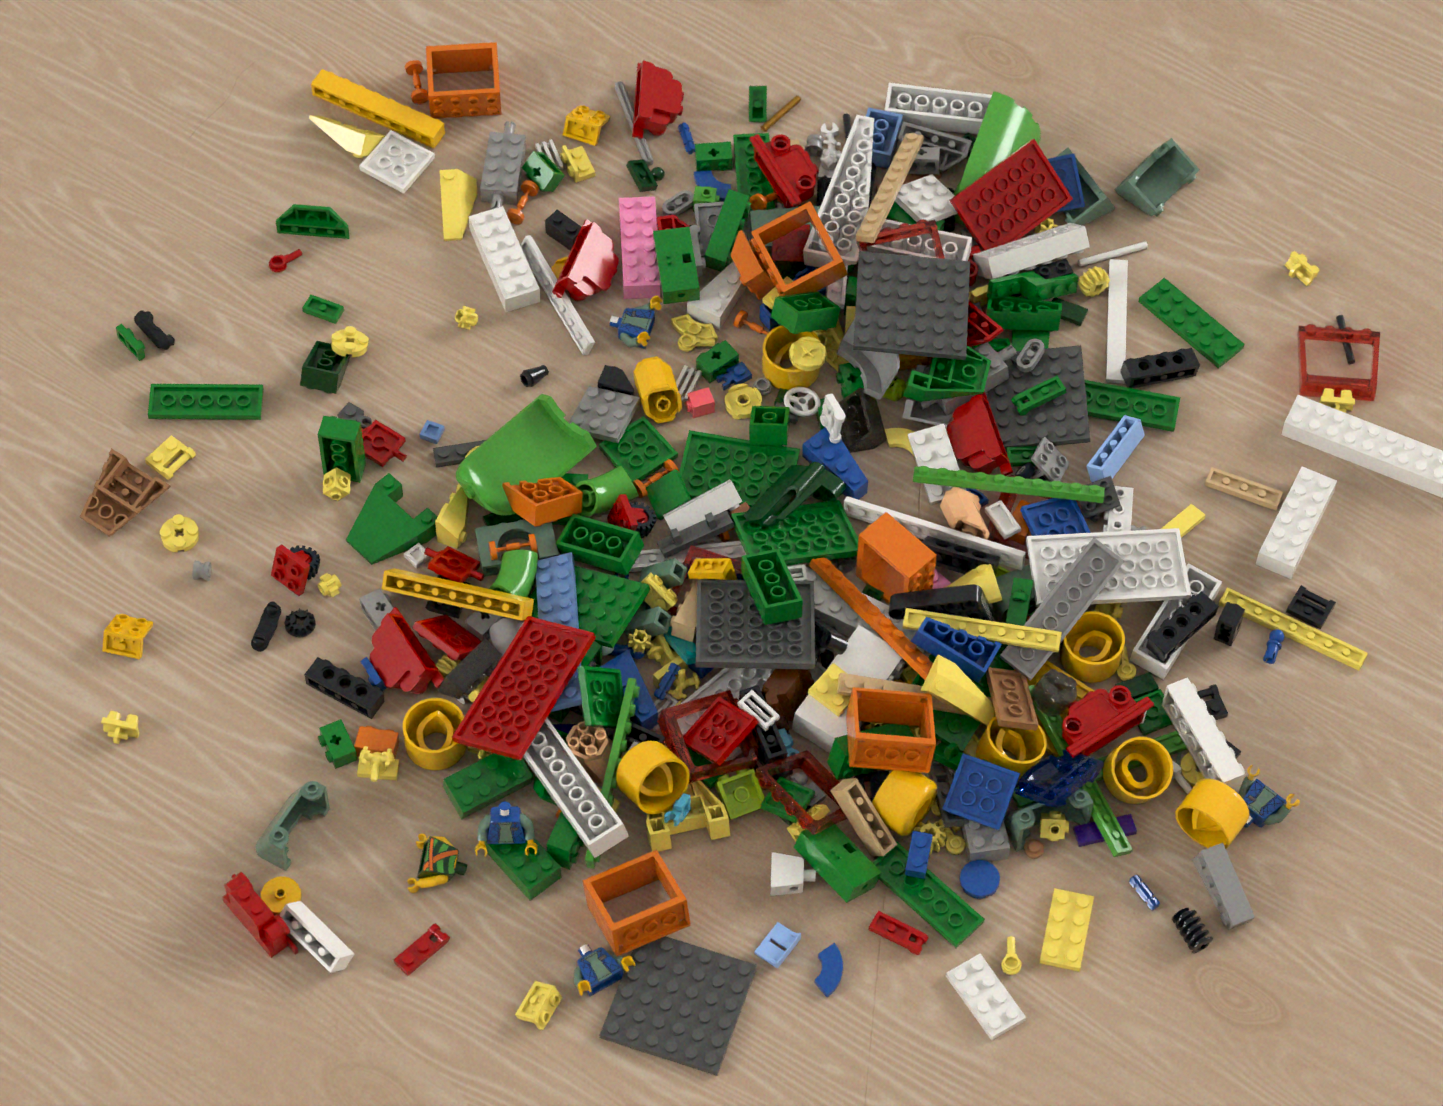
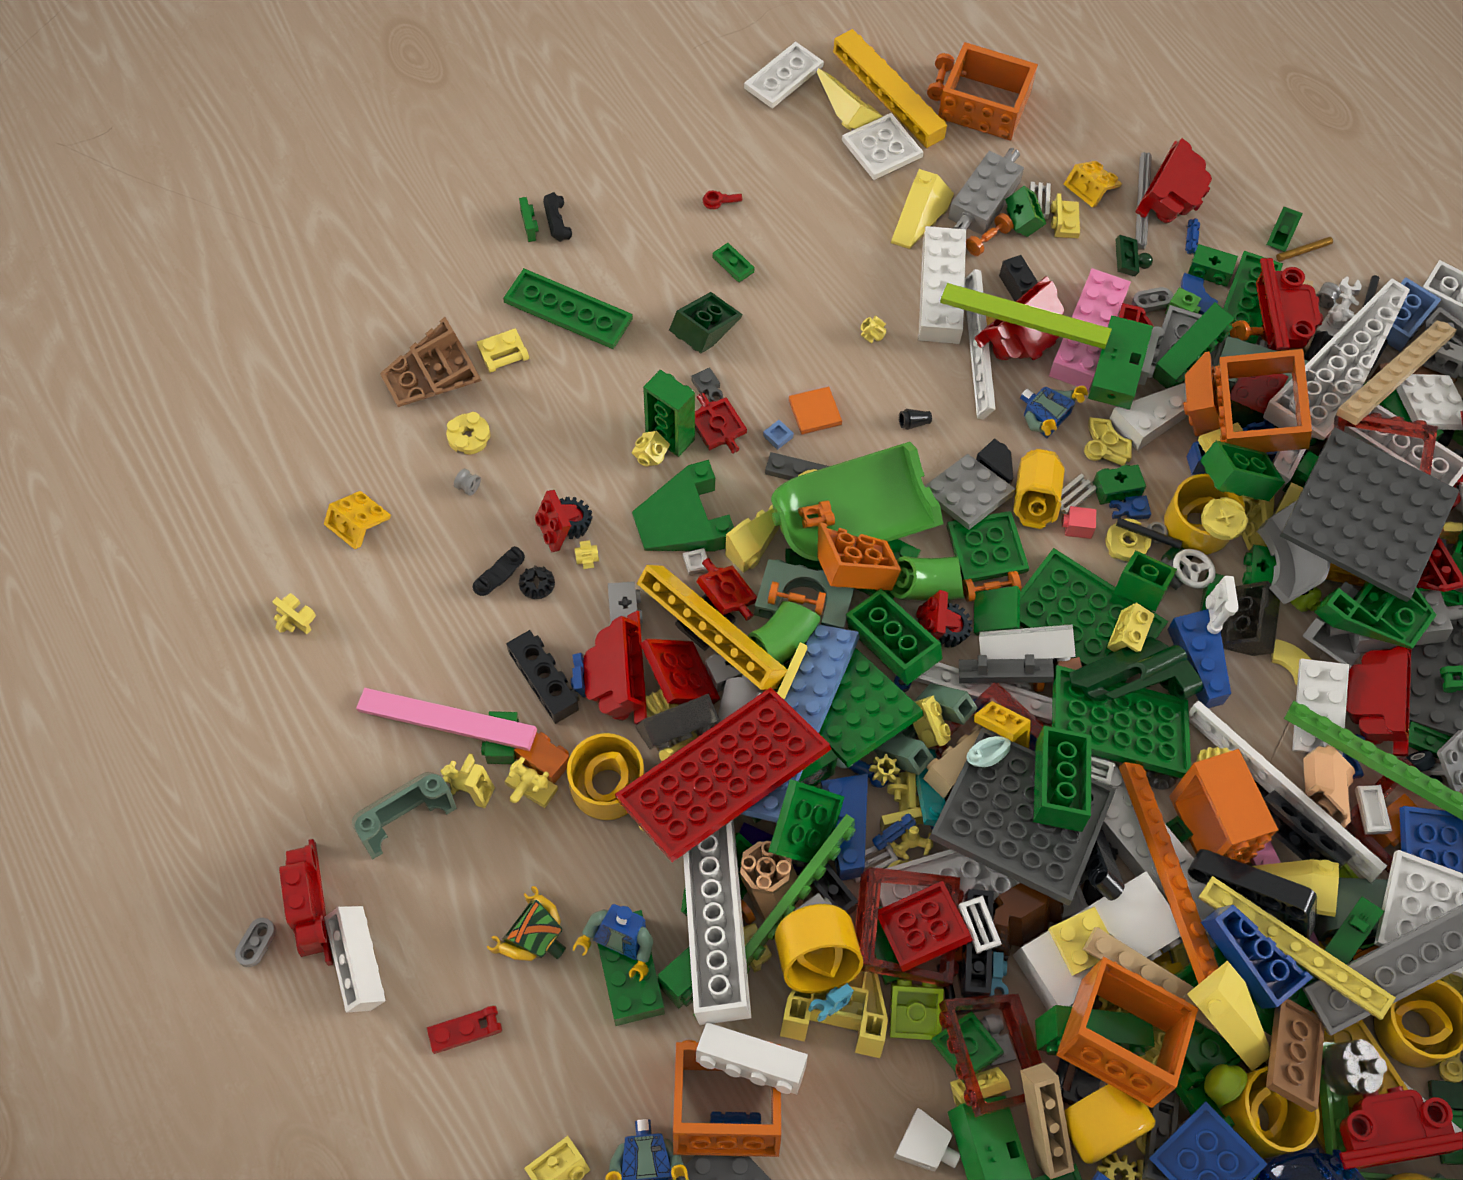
camera: 25 degrees right, 5 degrees up
(232, 962) = (254, 942): none -> light grey plate
(278, 885) = (358, 895): yellow plate -> none
(281, 132) = (783, 75): none -> white plate
(288, 747) = (447, 719): none -> bright pink tile
(312, 221) = (766, 171): green wedge -> none
(338, 782) = (475, 782): none -> light yellow piece
(349, 342) = (741, 306): light yellow plate -> none
(451, 401) = (815, 410): none -> orange tile
(485, 783) = (629, 861): green brick -> none
(500, 475) = (824, 513): none -> orange piece
(536, 595) = (792, 670): none -> light yellow tile
(585, 258) = (1026, 316): none -> lime tile
(641, 862) = (751, 1058): none -> white brick
(710, 592) = (988, 751): none -> light aqua arm
(741, 319) = (1166, 449): orange wheel -> none
(756, 389) = (1157, 536): none -> black bar
(774, 464) = (1131, 628): none -> light yellow bracket
(972, 740) = (1225, 1083): none -> lime helmet

